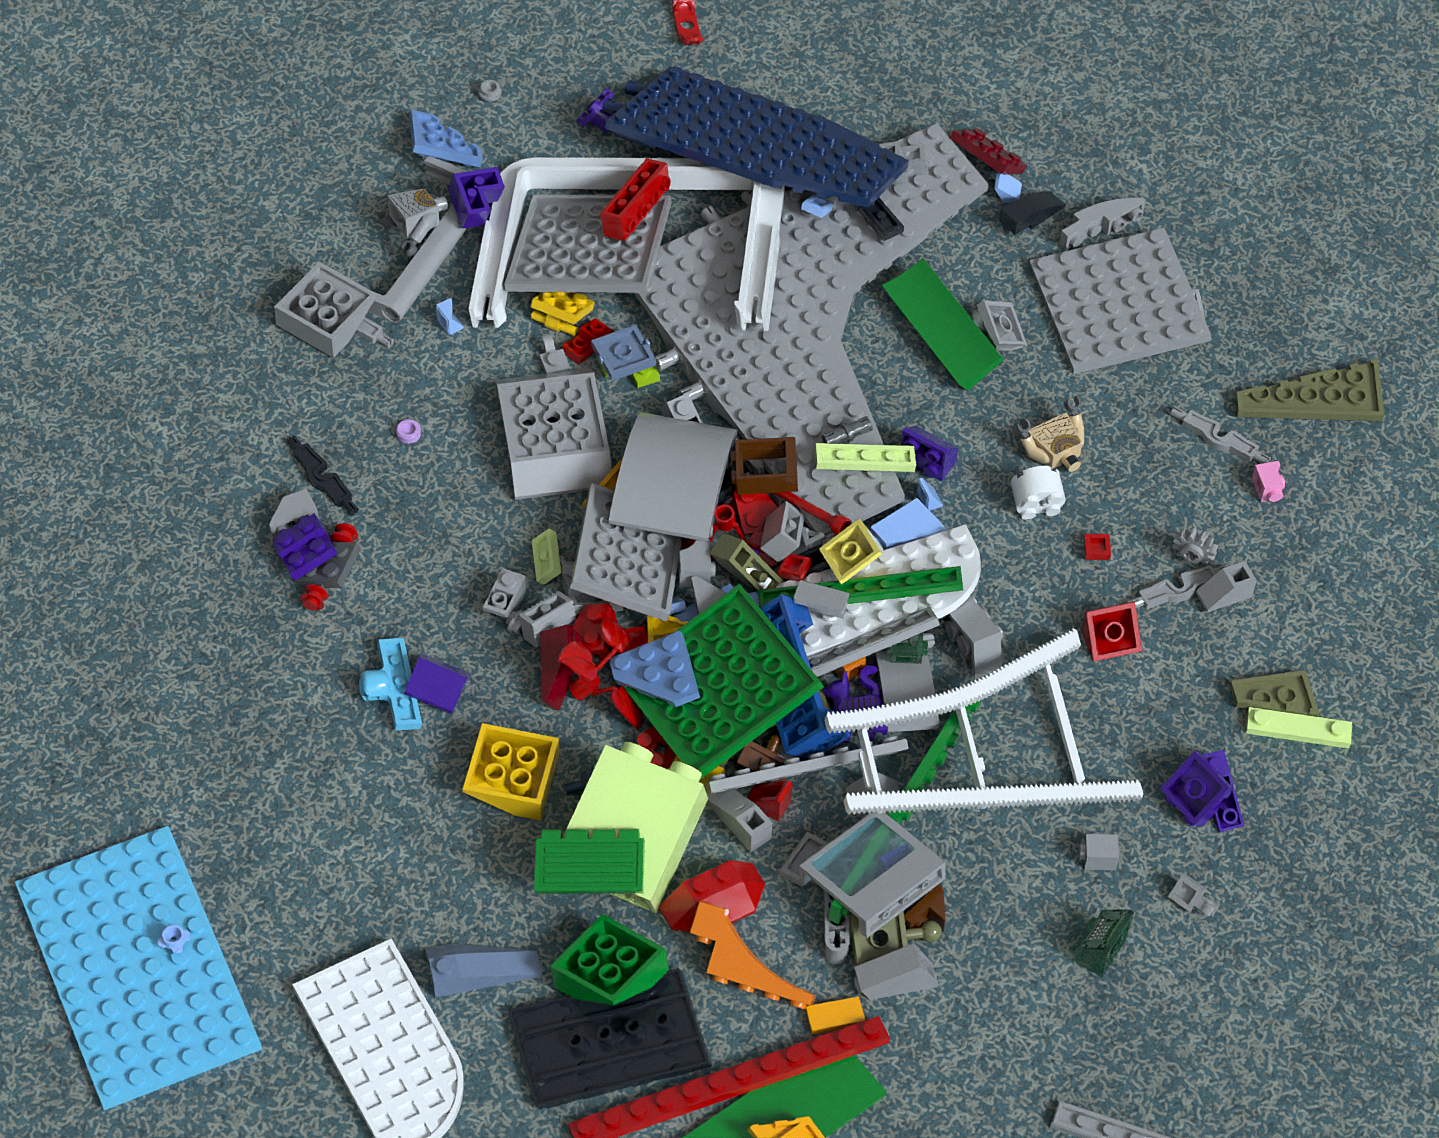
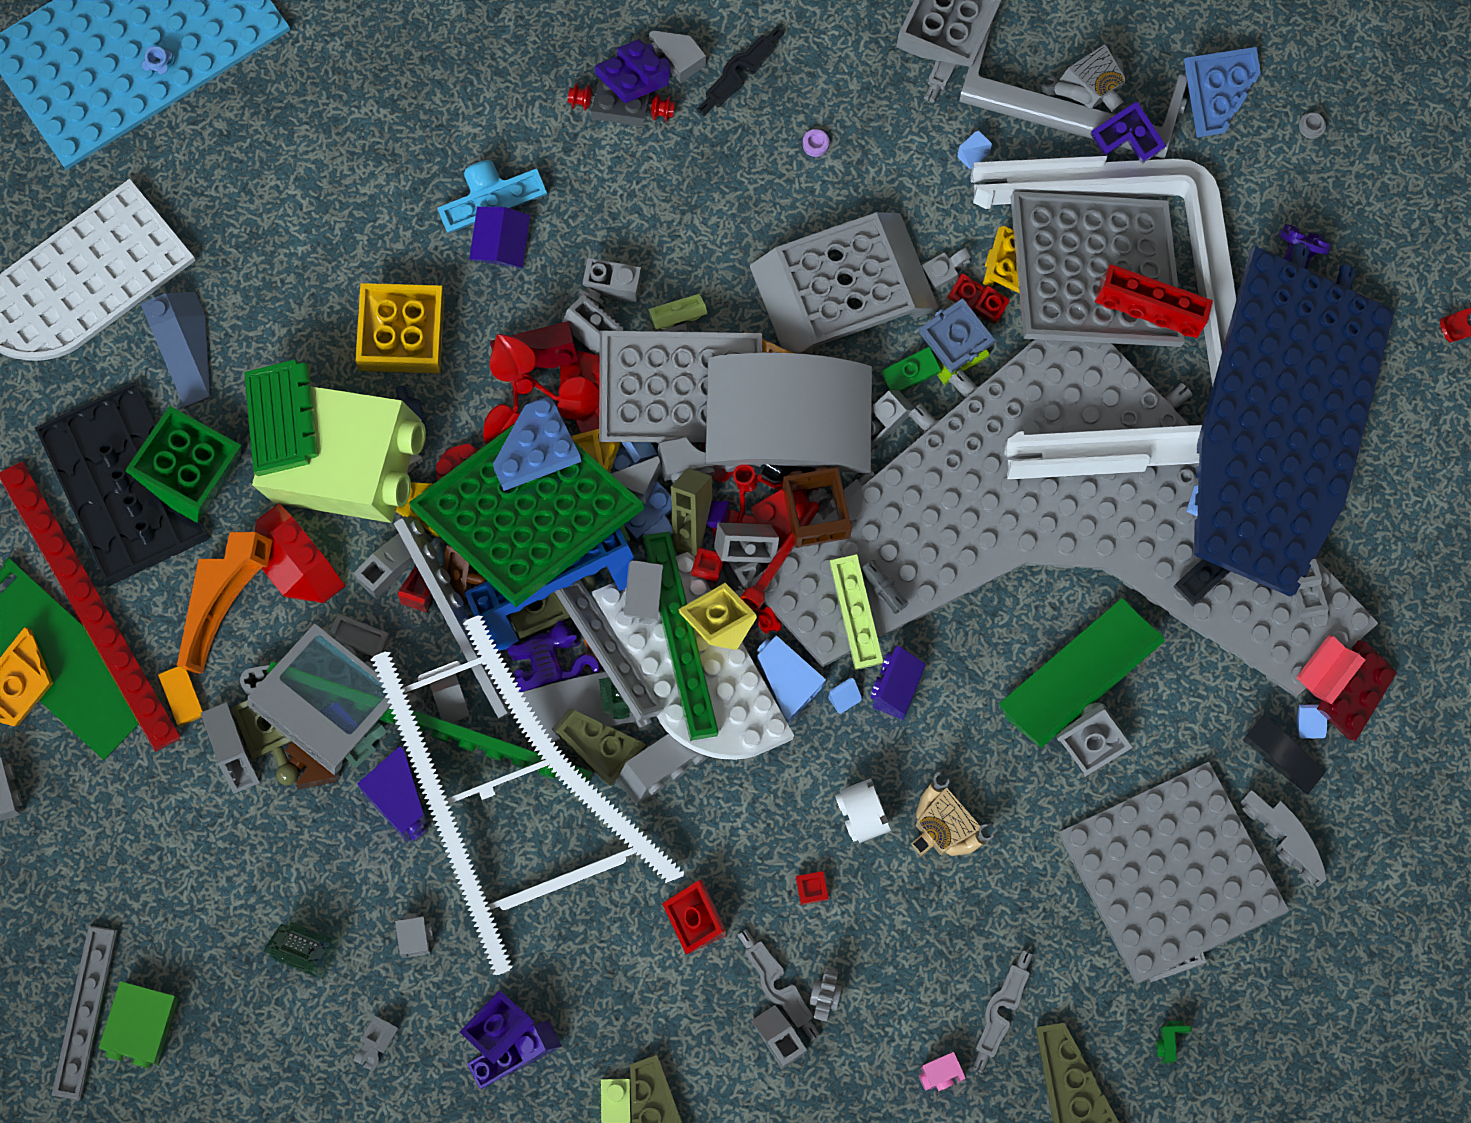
camera: 80 degrees right, 20 degrees up
(644, 393) = (911, 370): none -> green plate
(945, 674) = (597, 744): none -> olive wing
(969, 837) = (395, 795): none -> dark purple slope
(975, 154) = (1330, 669): none -> coral panel
(1154, 1090) = (138, 1025): none -> bright green brick
(1260, 327) = (1166, 1045): none -> green bracket

